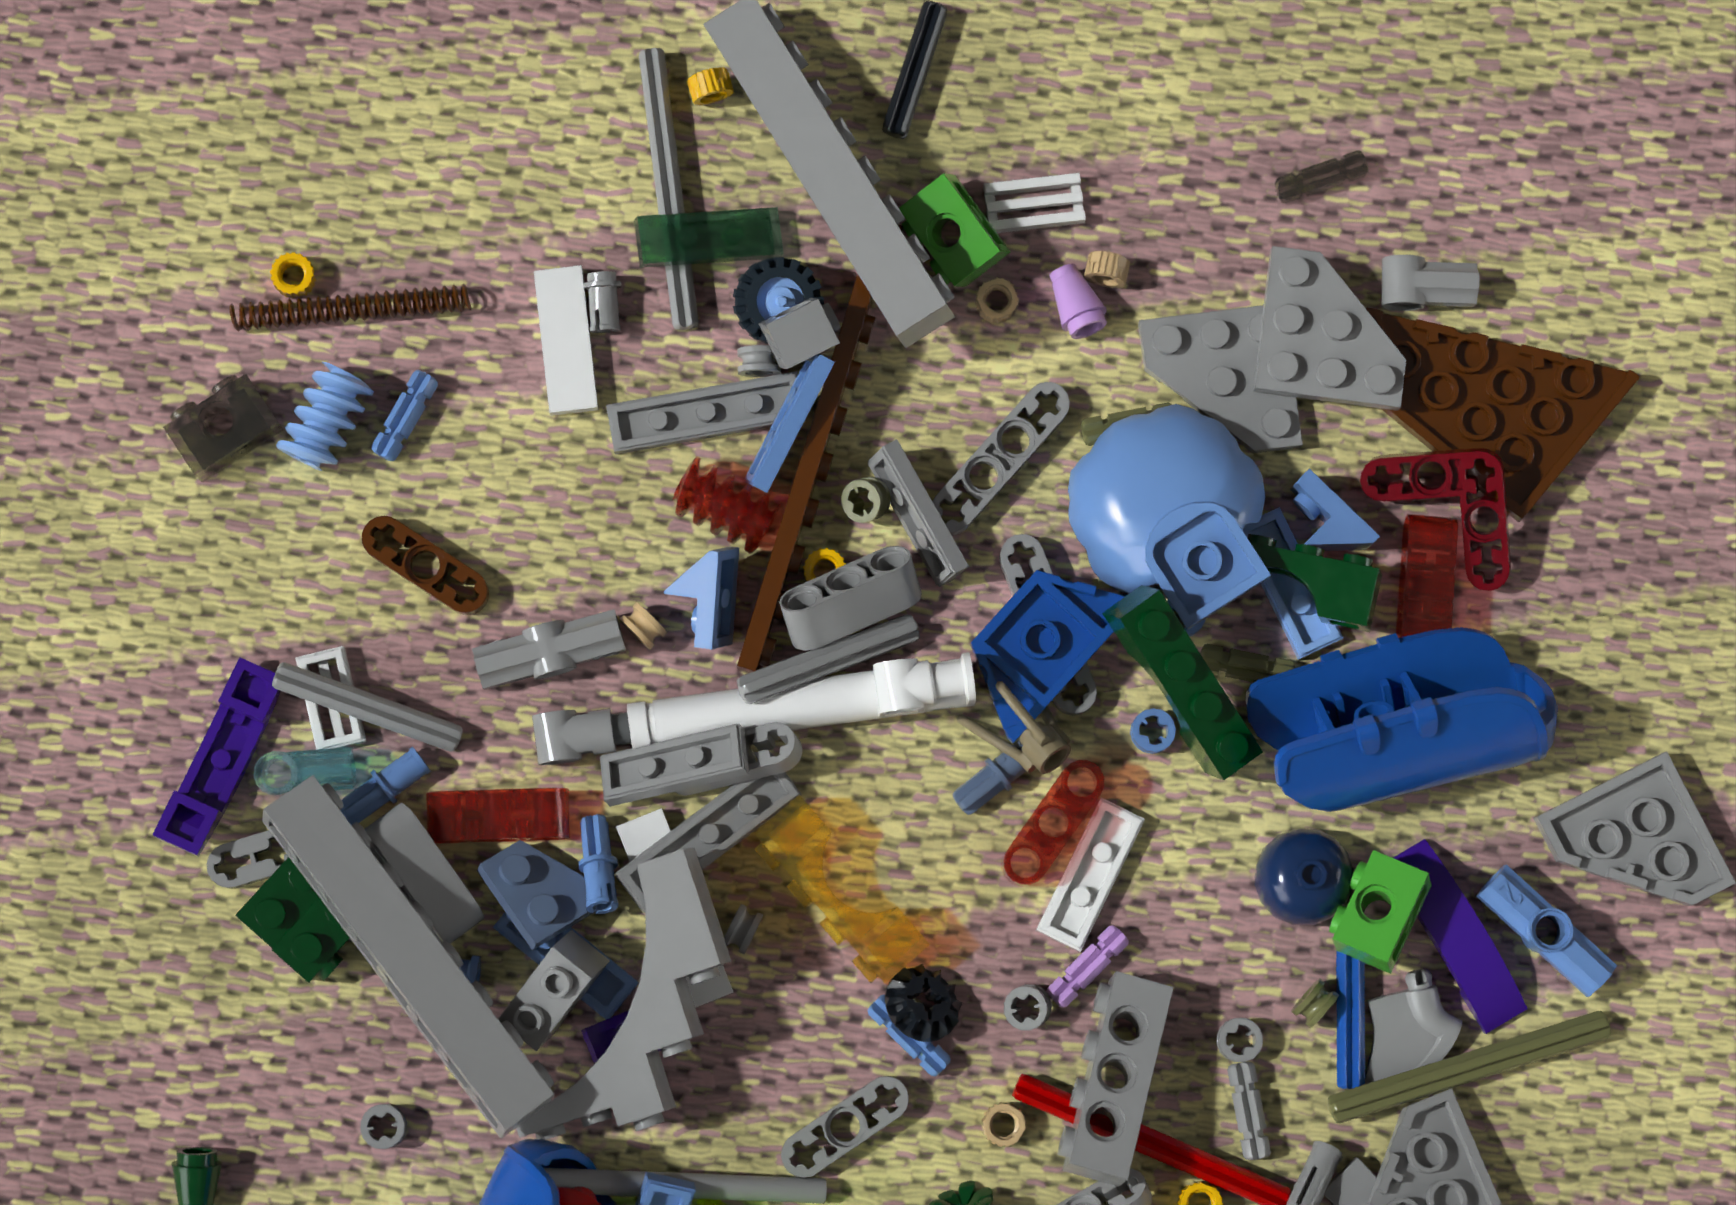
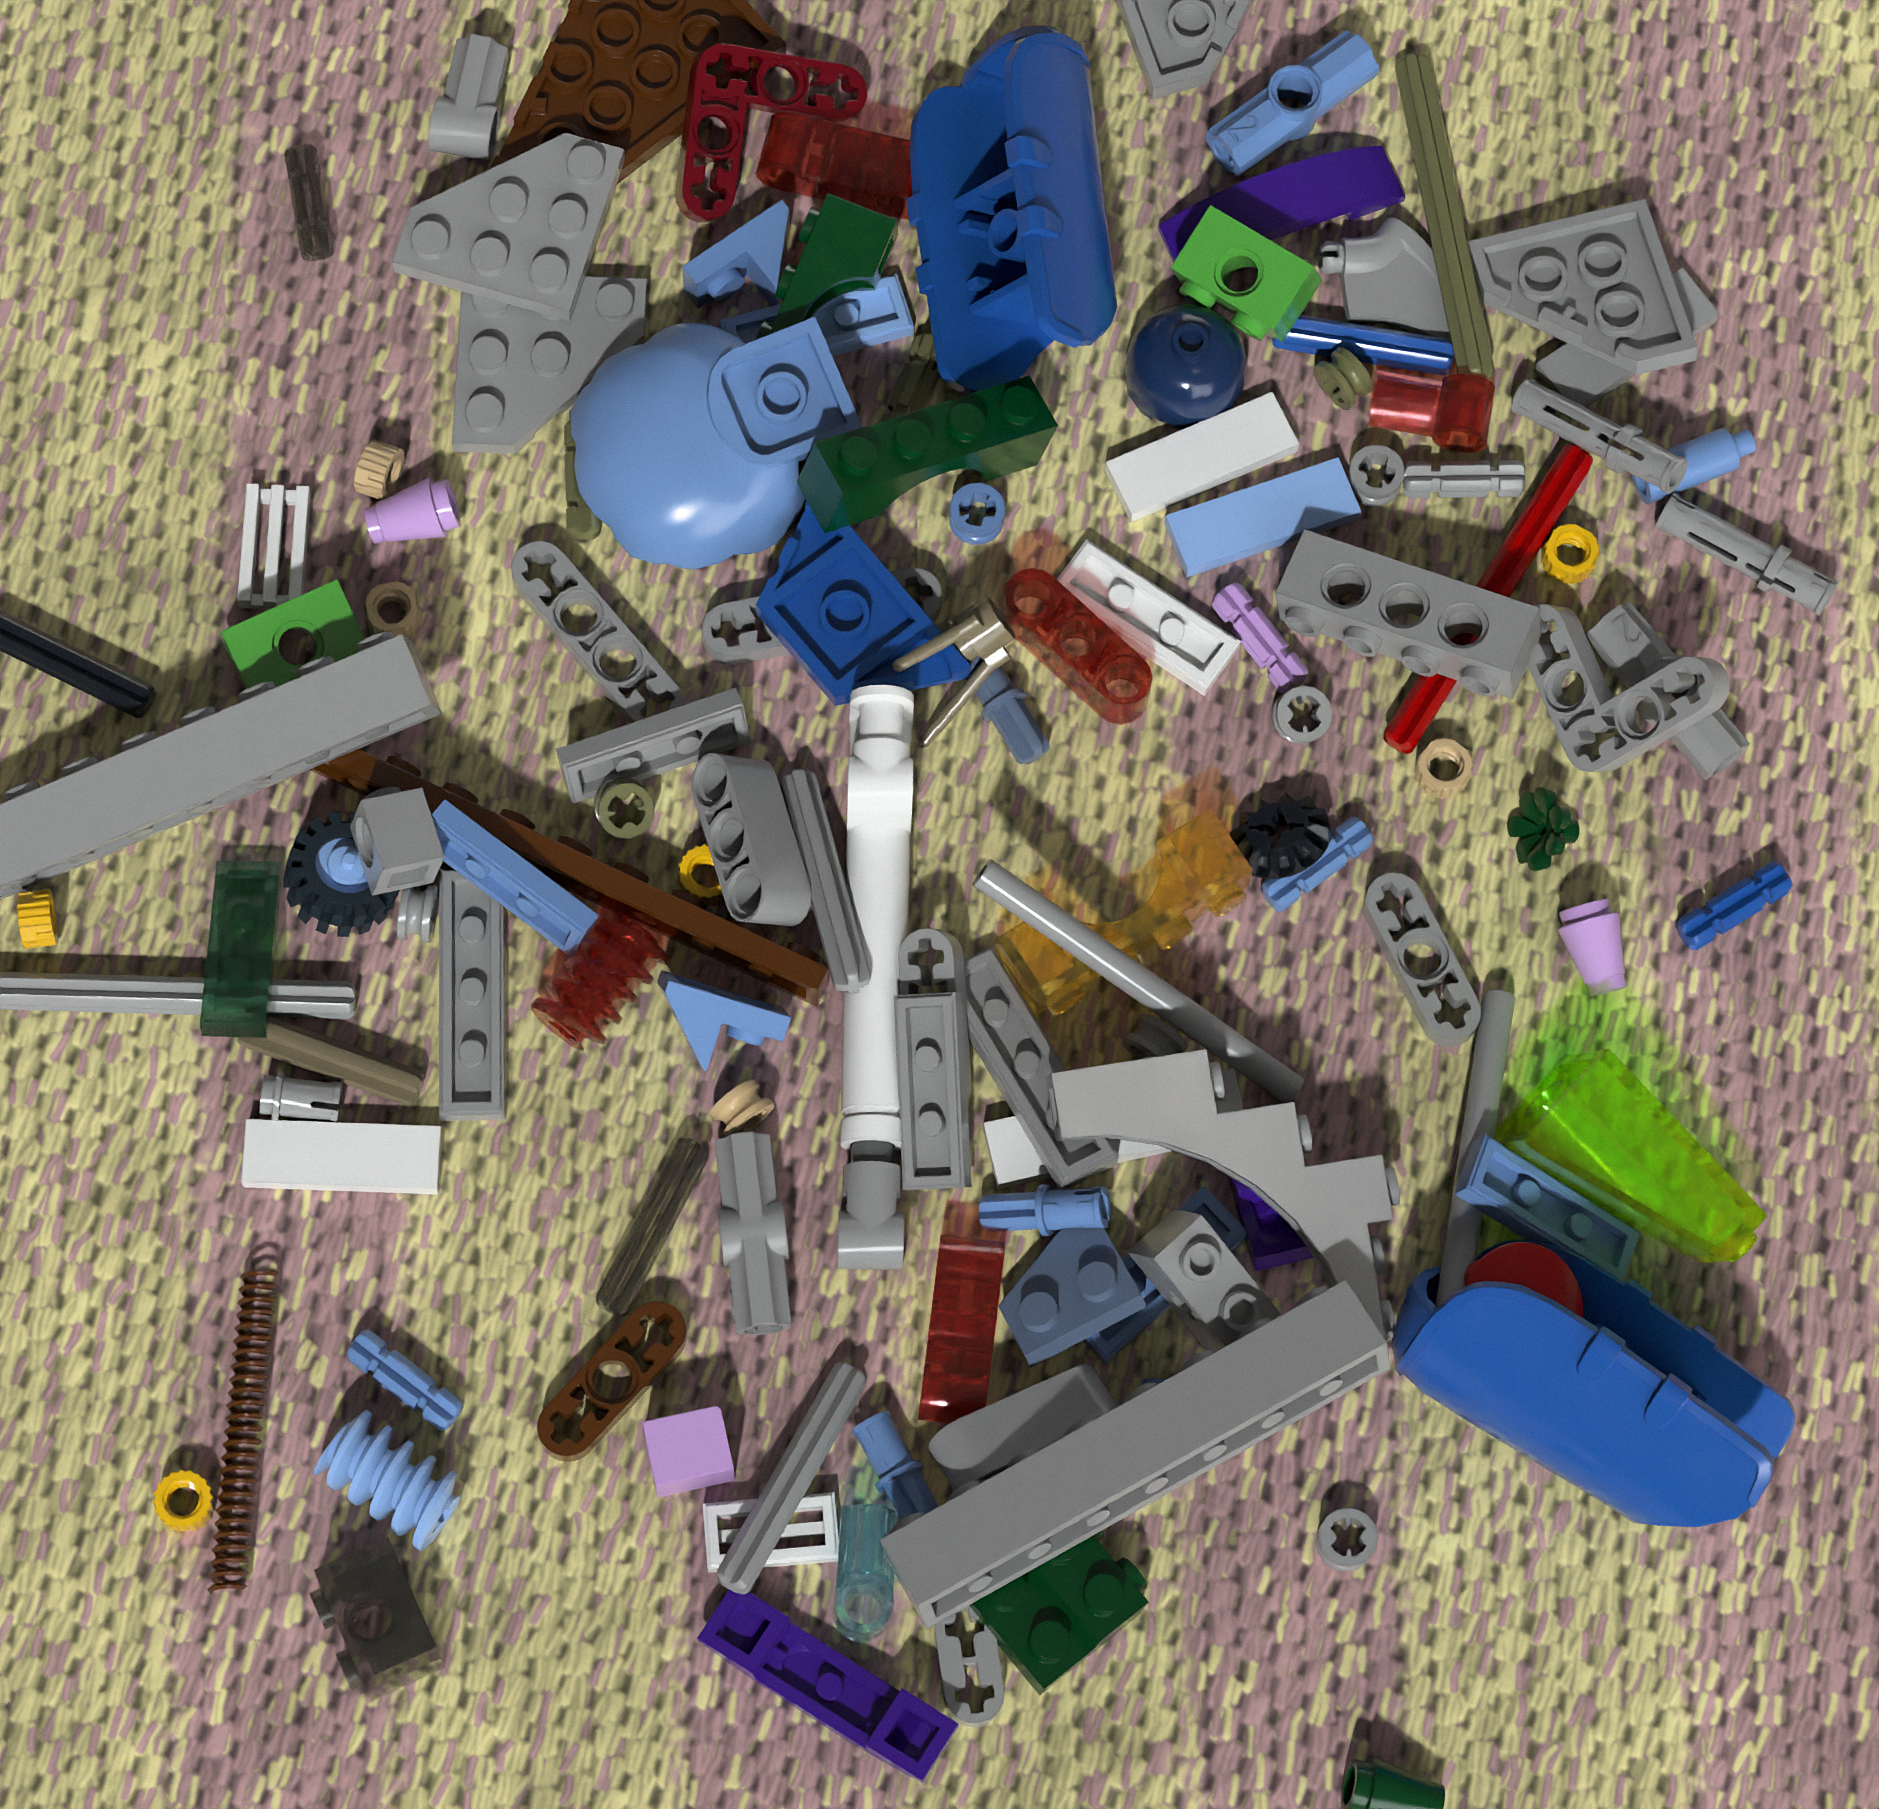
camera: 80 degrees left, 10 degrees down
(375, 626) = (688, 1451): none -> lavender panel
(546, 575) = (652, 1226): none -> clear smoke axle
(636, 326) = (338, 1061): none -> dark tan axle
(780, 907) = (1138, 981): none -> light grey piece
(1189, 955) = (1262, 517): none -> light blue tile
(1232, 900) = (1201, 457): none -> white tile
(1302, 1093) = (1448, 410): none -> clear red piece

